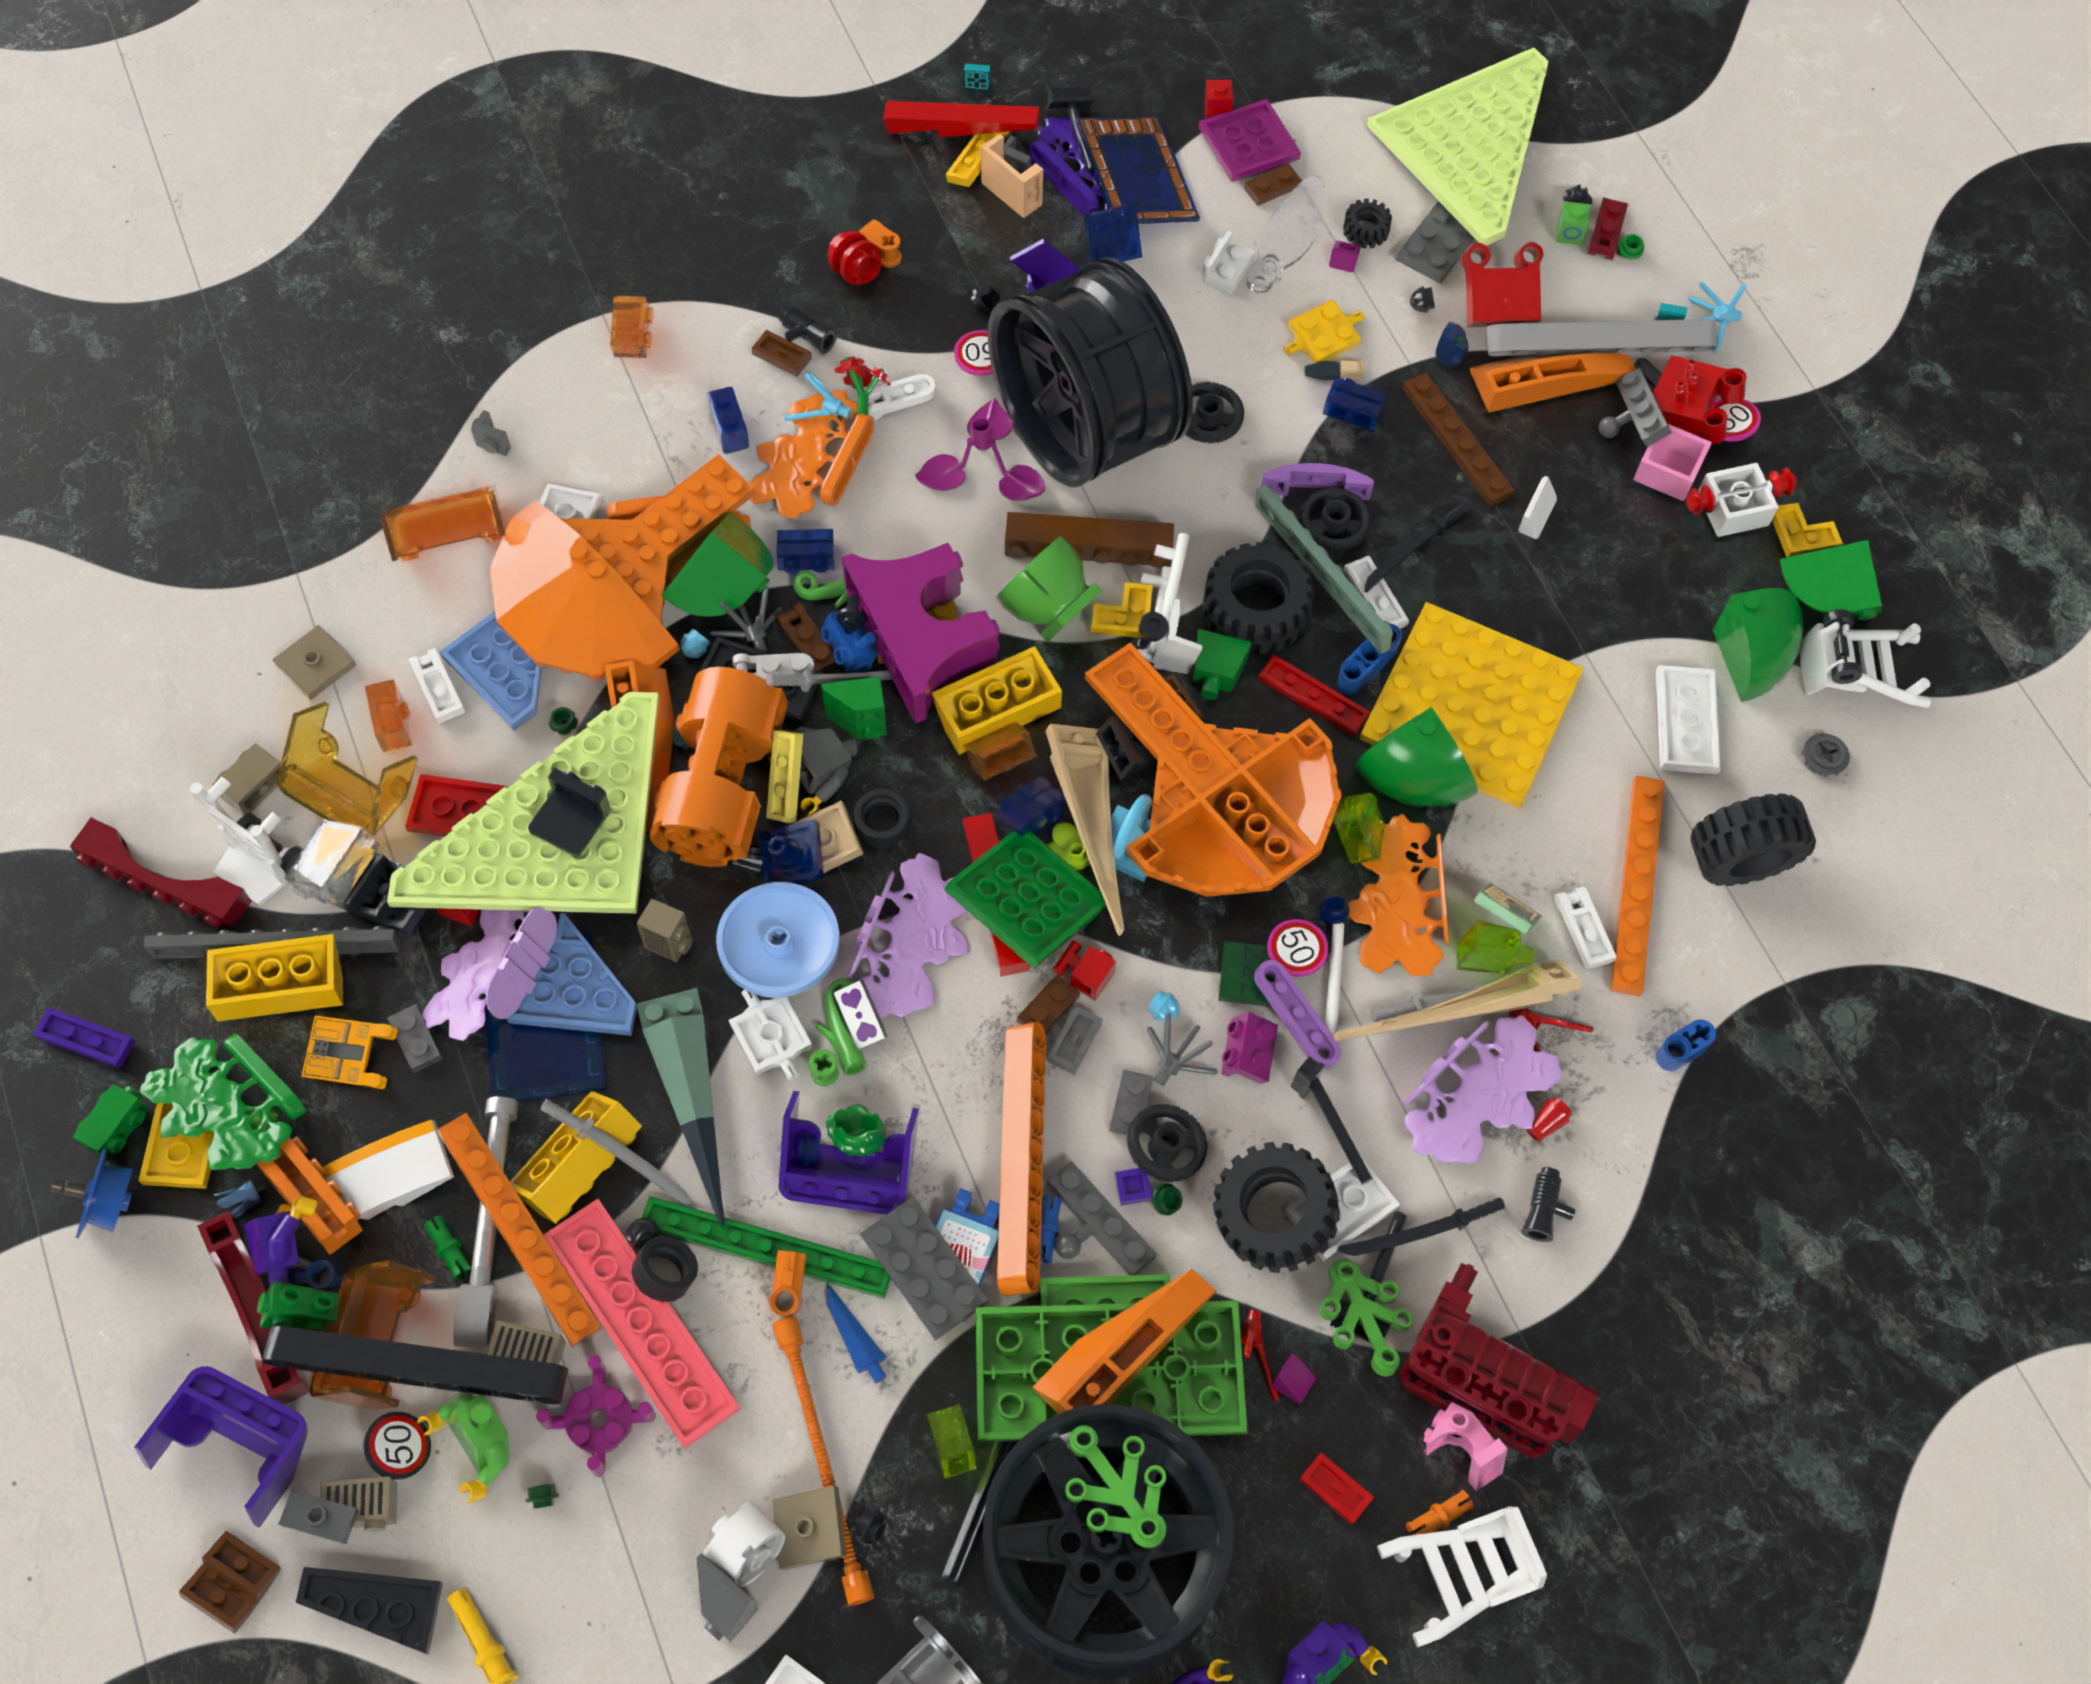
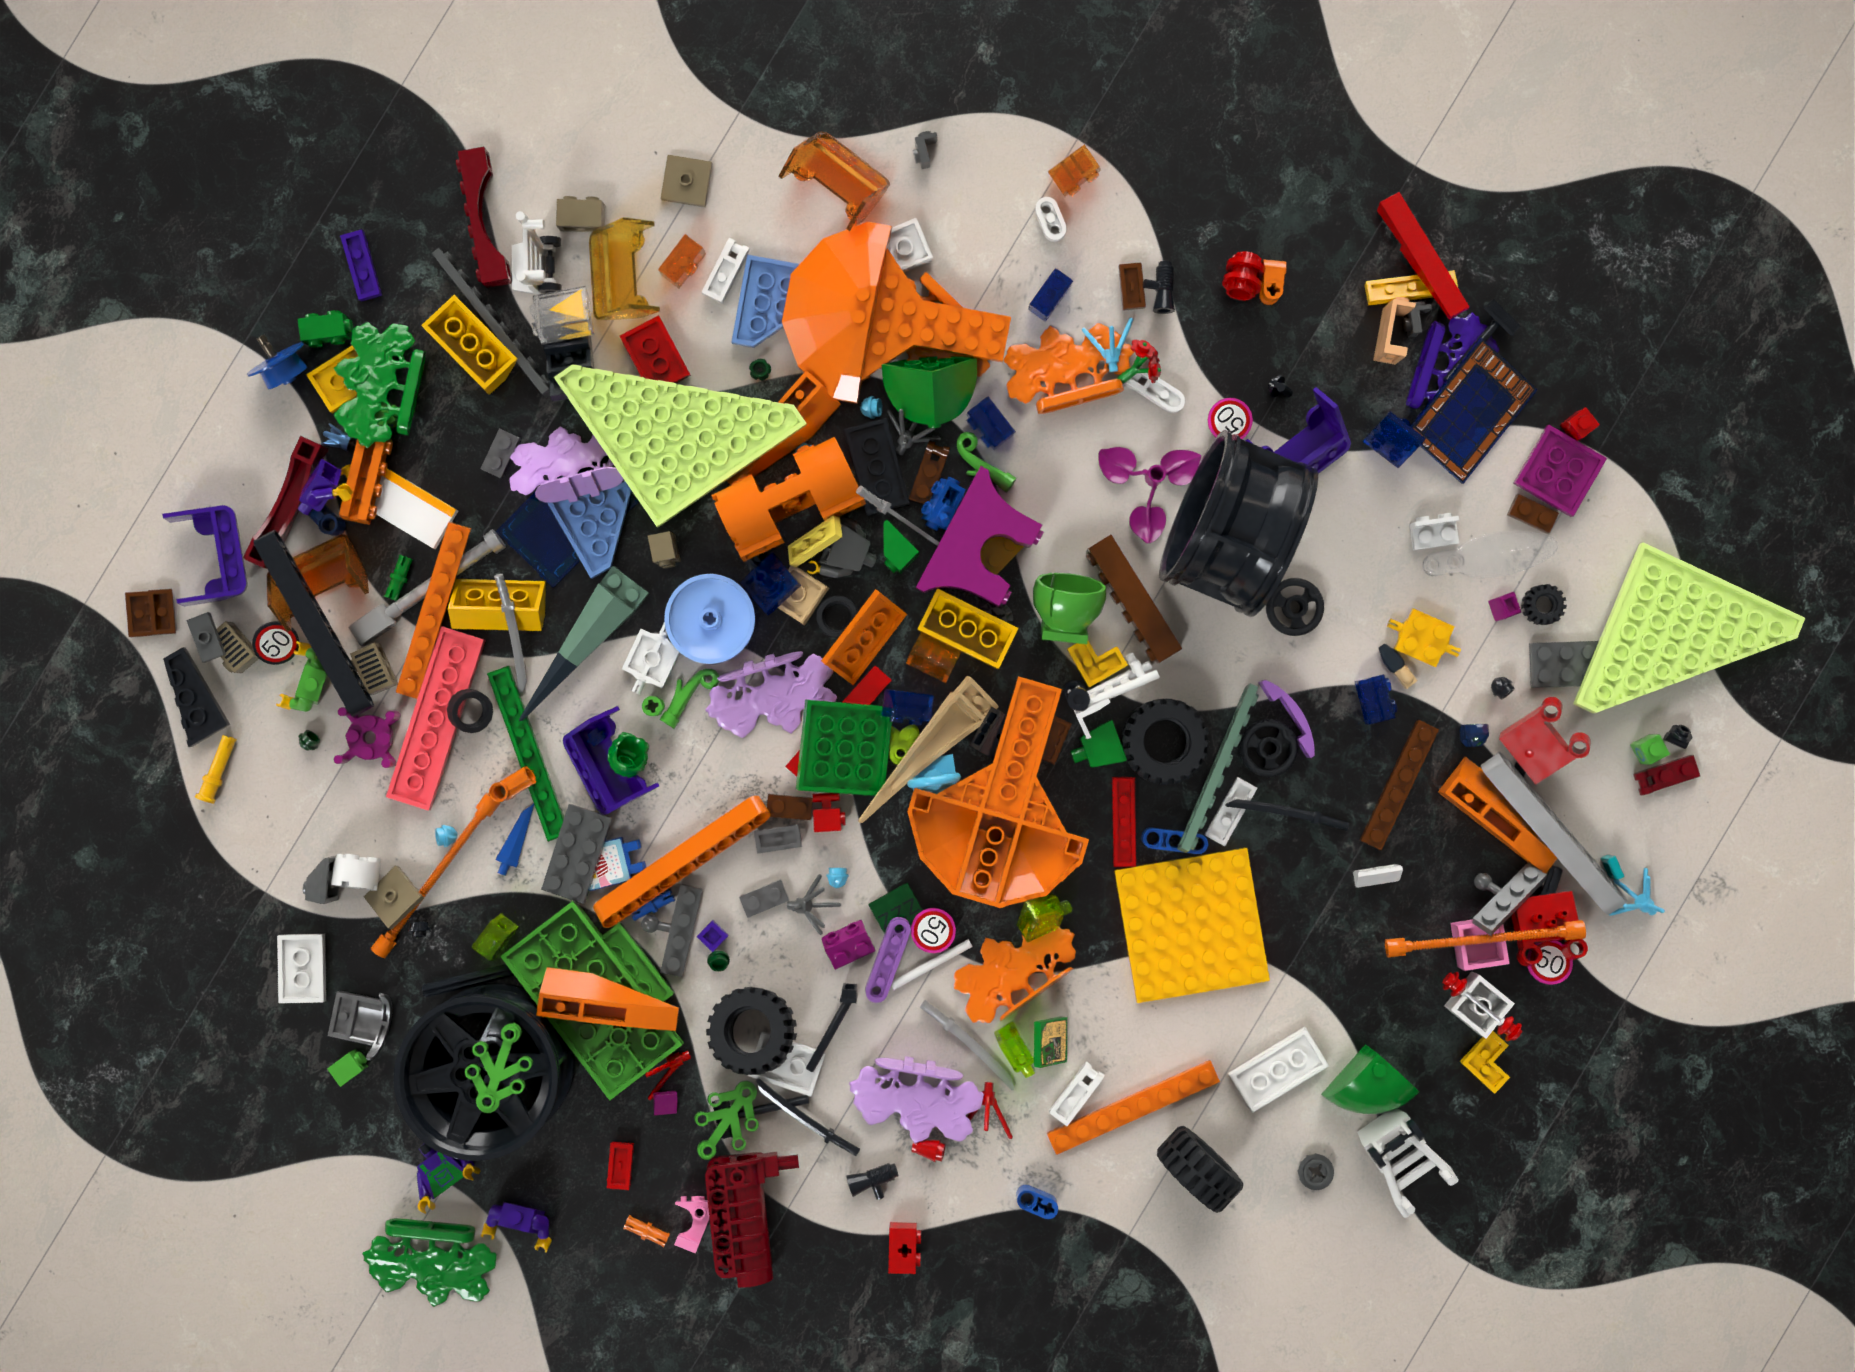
camera: 50 degrees right, 25 degrees up
(298, 1307) = (300, 530): green brick -> none
(341, 1051) = (462, 419): light orange flag -> none
(570, 813) = (681, 441): black bracket -> none
(641, 1231) = (482, 681): black plate -> none
(658, 377) = (1050, 220): none -> white plate
(774, 664) = (886, 473): white plate -> none
(784, 1411) = (445, 835): none -> medium azure plate
(851, 617) = (952, 498): black plate -> none
(860, 1014) = (699, 703): tile -> none
(924, 802) = (864, 637): none -> orange plate
(977, 77) = (1473, 236): teal tile -> none
(1172, 1132) = (766, 949): black wheel -> none
(1334, 910) = (975, 935): clear blue plate -> none
(1419, 765) = (1111, 924): green brick -> none
(1515, 1549) = (633, 1299): white hand -> none
(1519, 990) = (996, 1082): tan plate -> none
(1629, 520) = (1570, 930): none -> orange hose
(1631, 246) = (1667, 801): green plate -> none
(1634, 1225) = (900, 1261): none -> red brick
(1835, 580) = (1447, 1110): green brick -> none

